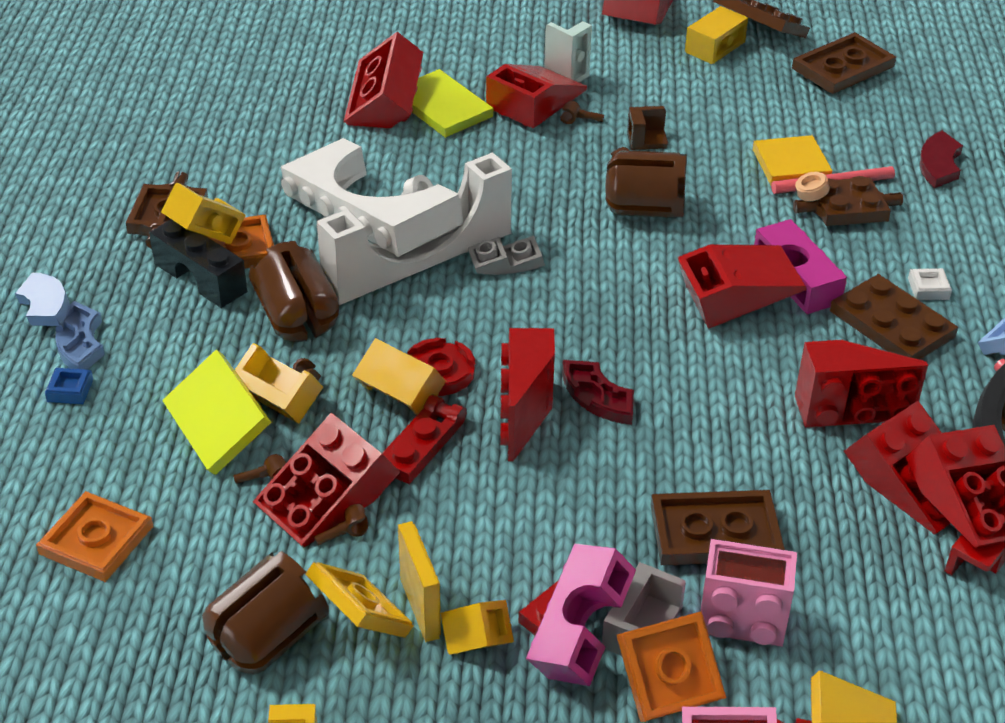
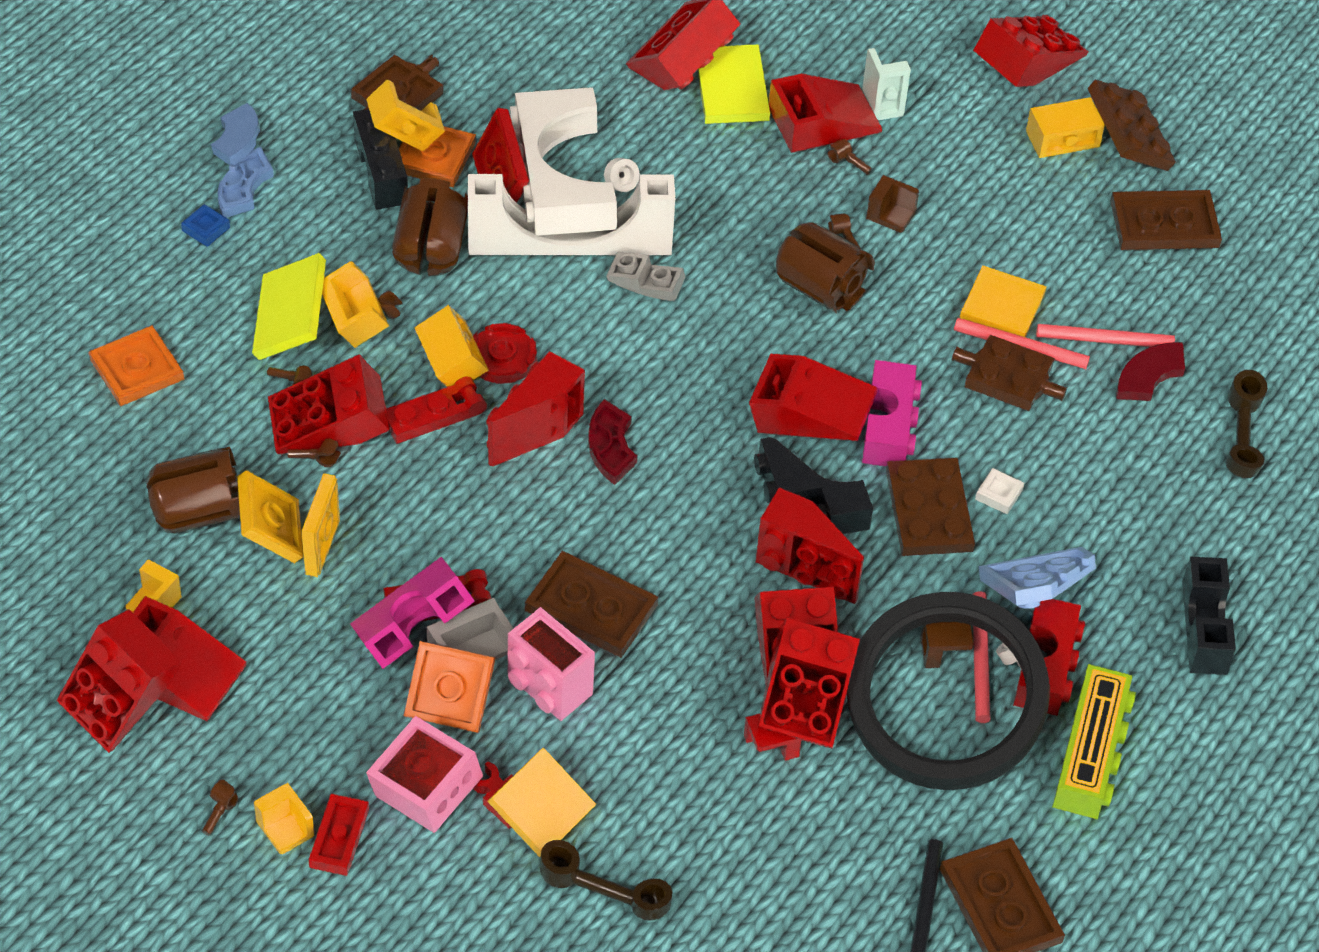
camera: 30 degrees right, 10 degrees up
(301, 208) = (500, 154): none -> red tile
(477, 626) = (343, 583): yellow panel -> none
(779, 348) = (842, 502): none -> black arch
(812, 186) = (979, 341): light nougat tile -> none
(881, 151) = (1102, 335): none -> coral bar

